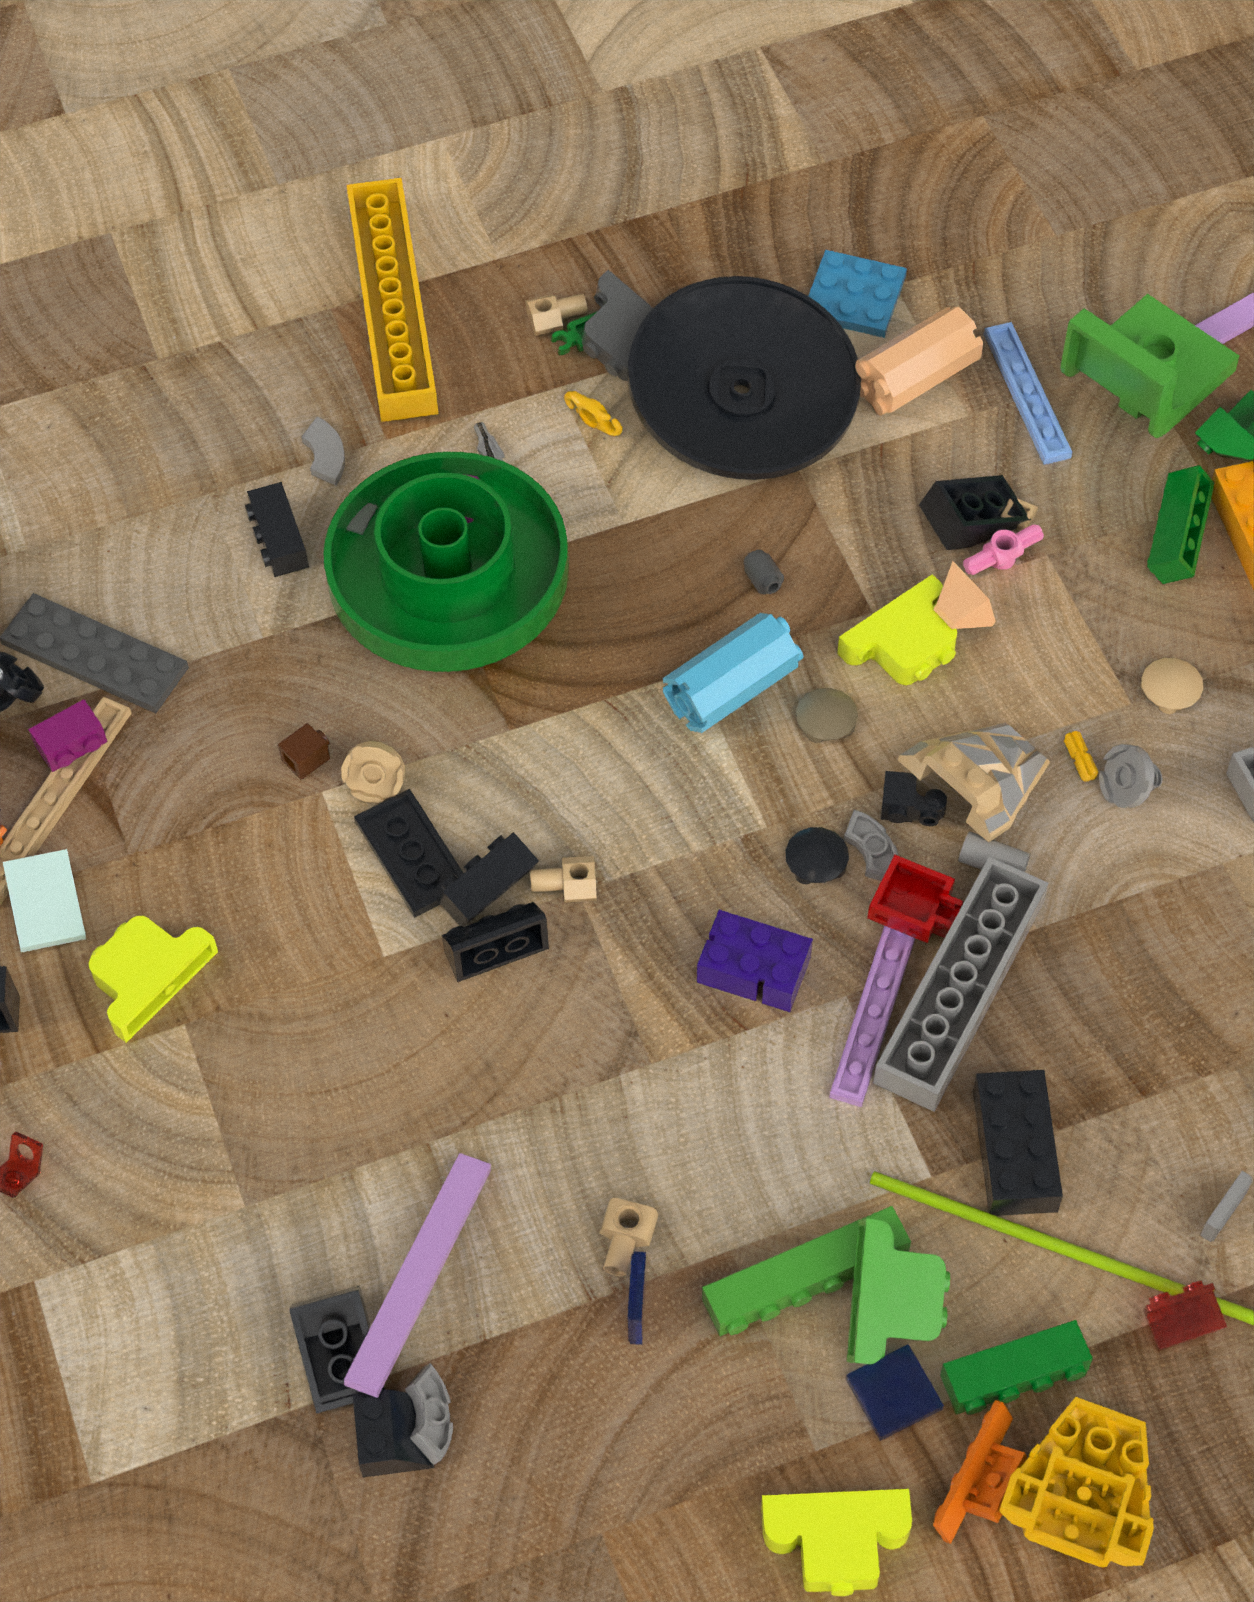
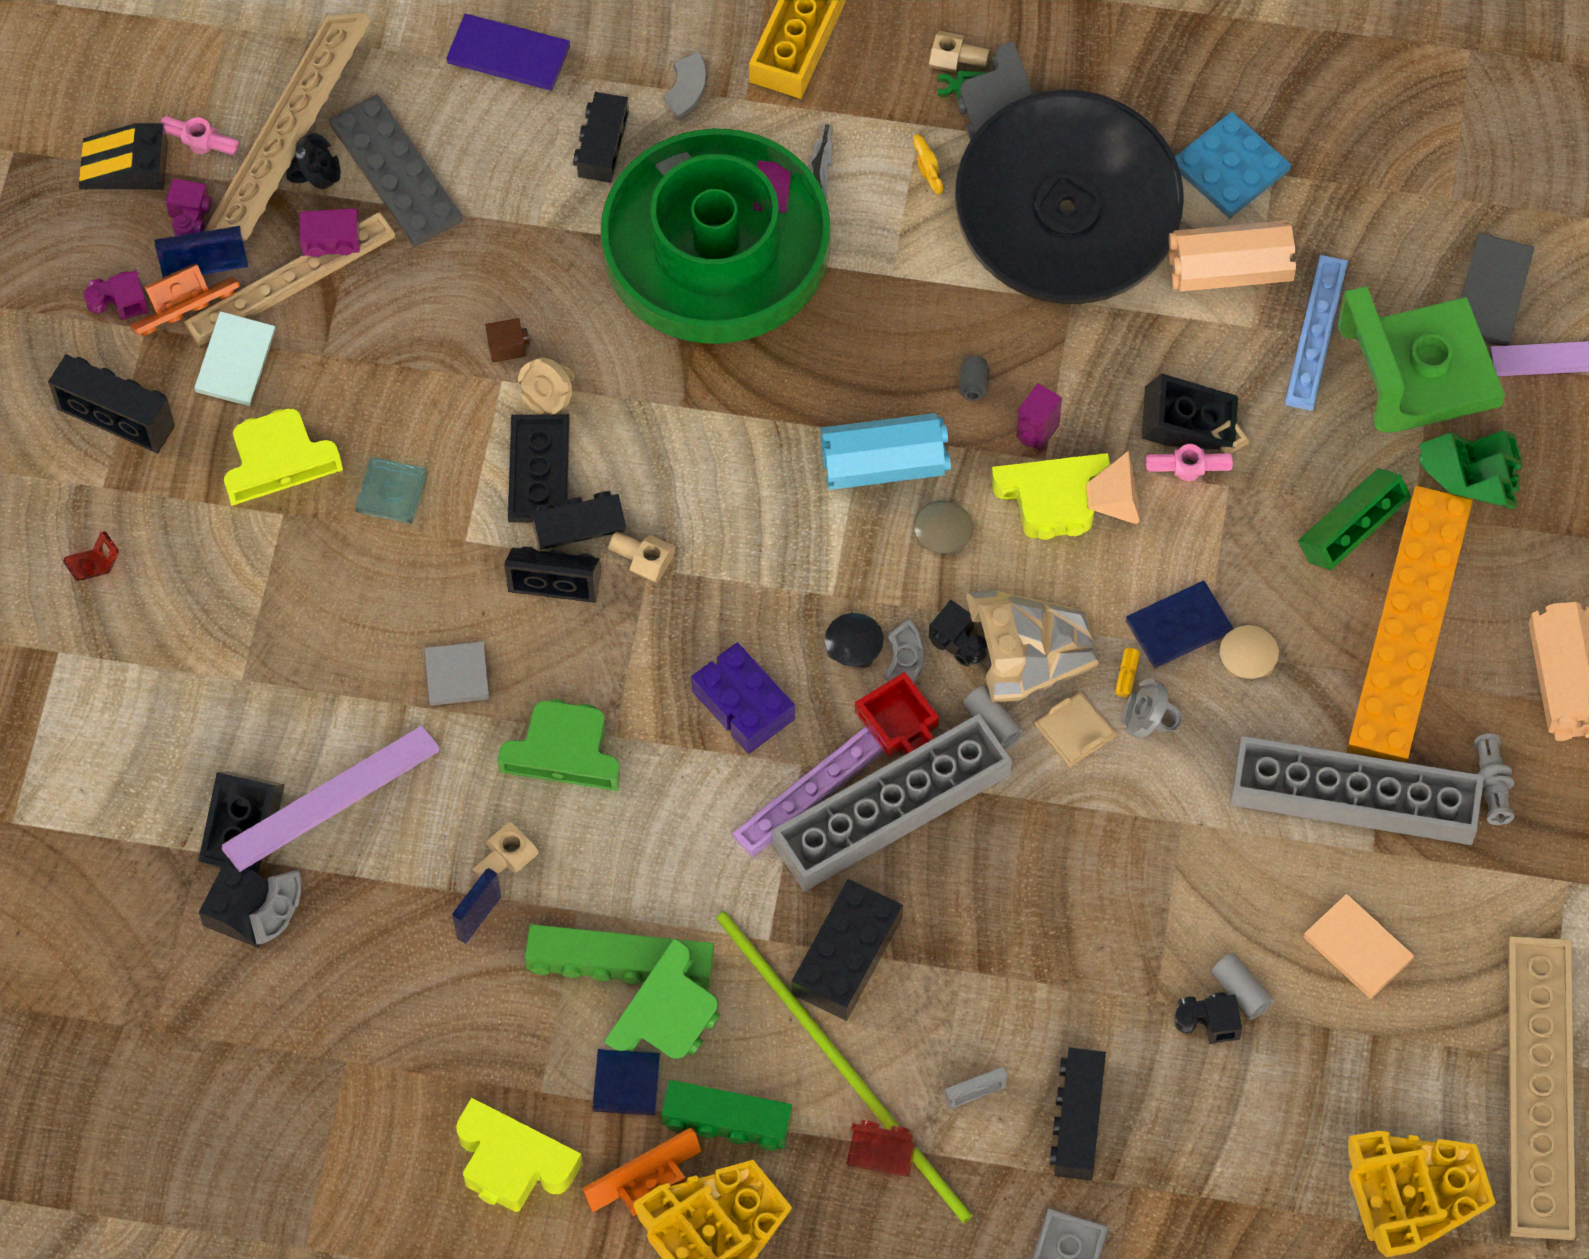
camera: 30 degrees right, 5 degrees up
(137, 498) = (508, 52): none -> dark purple tile
(280, 945) = (391, 490): none -> clear light blue tile
(460, 1085) = (456, 673): none -> light grey tile
(615, 1099) = (563, 747): none -> bright green brick
(849, 573) = (1038, 417): none -> magenta brick
(1069, 831) = (1075, 728): none -> tan piece
(1094, 691) = (1179, 624): none -> clear blue tile
(1142, 270) = (1497, 285): none -> dark grey tile

